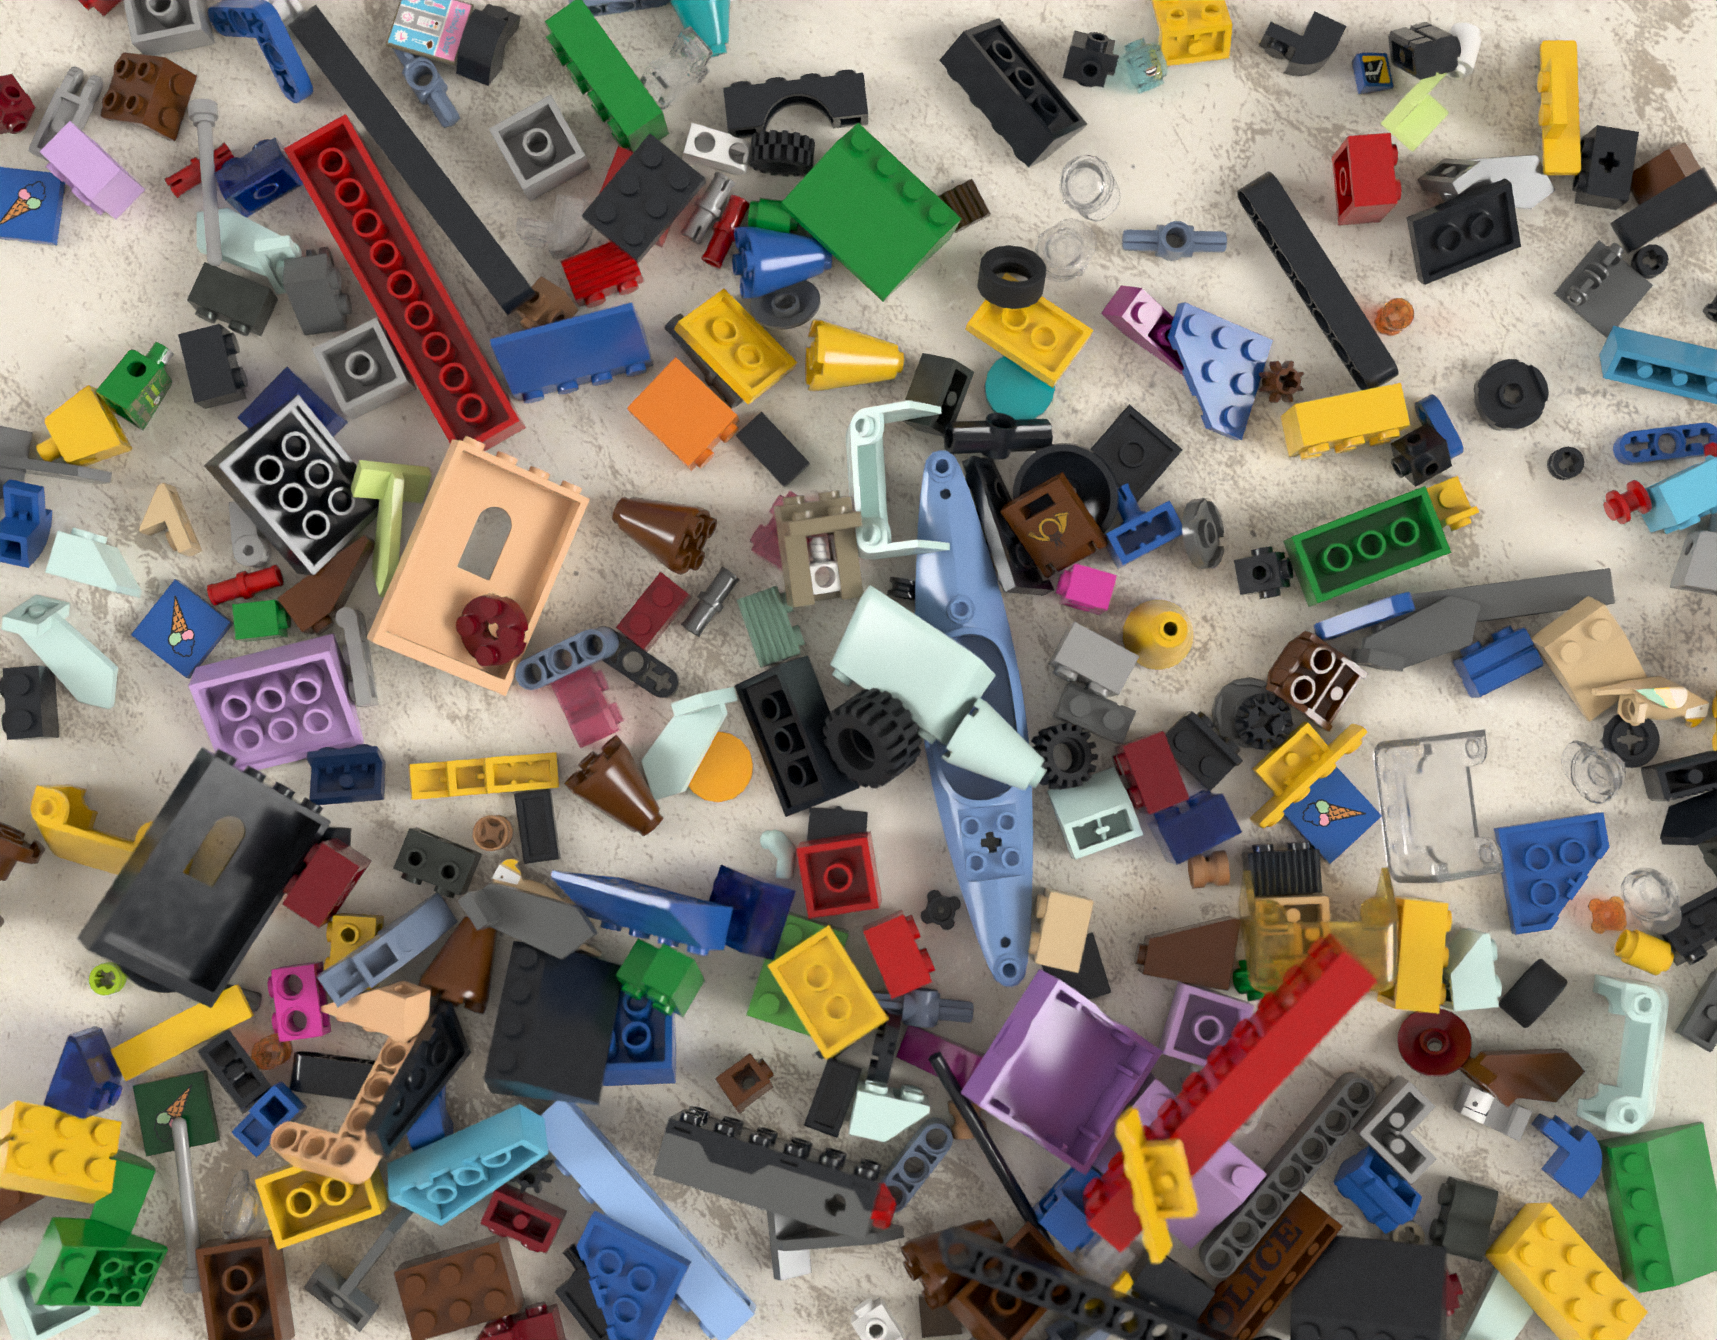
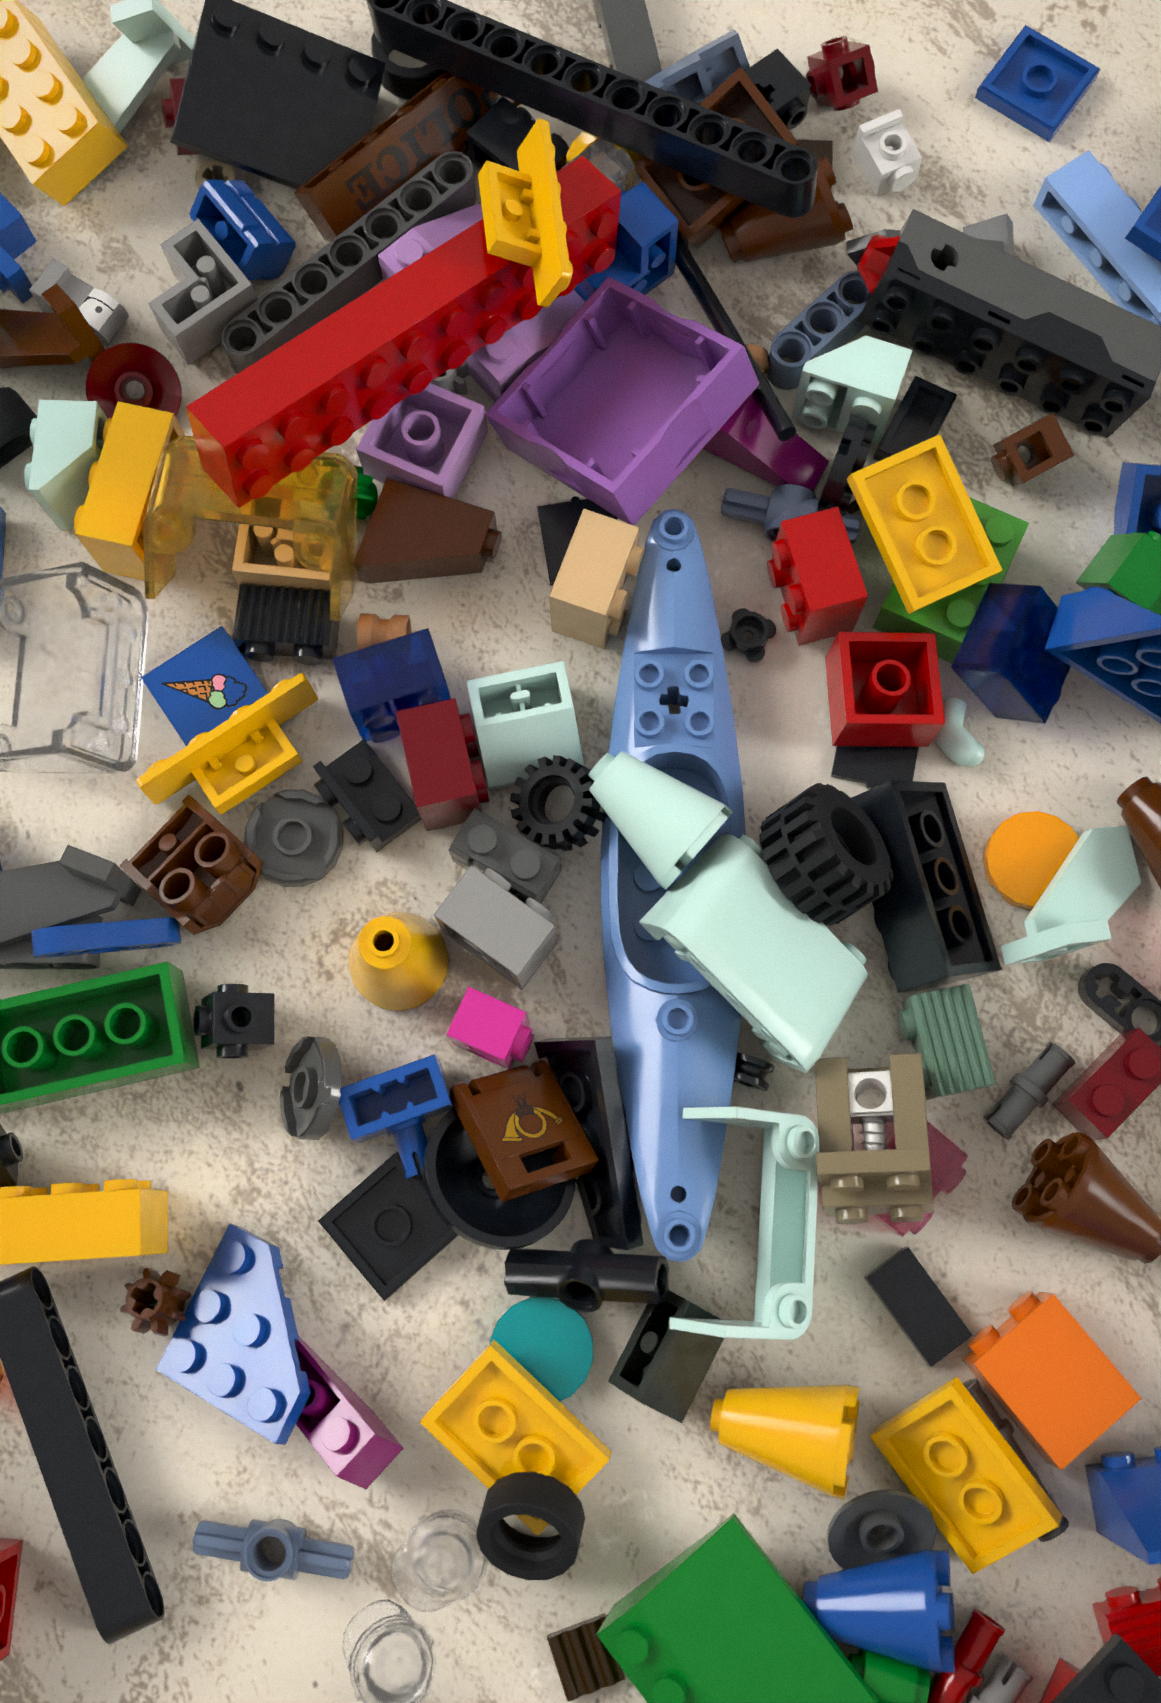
camera: 170 degrees left, 10 degrees down
(1249, 714) = (293, 829): black gear -> none
(1464, 1218) = (142, 190): pearl dark grey brick -> none

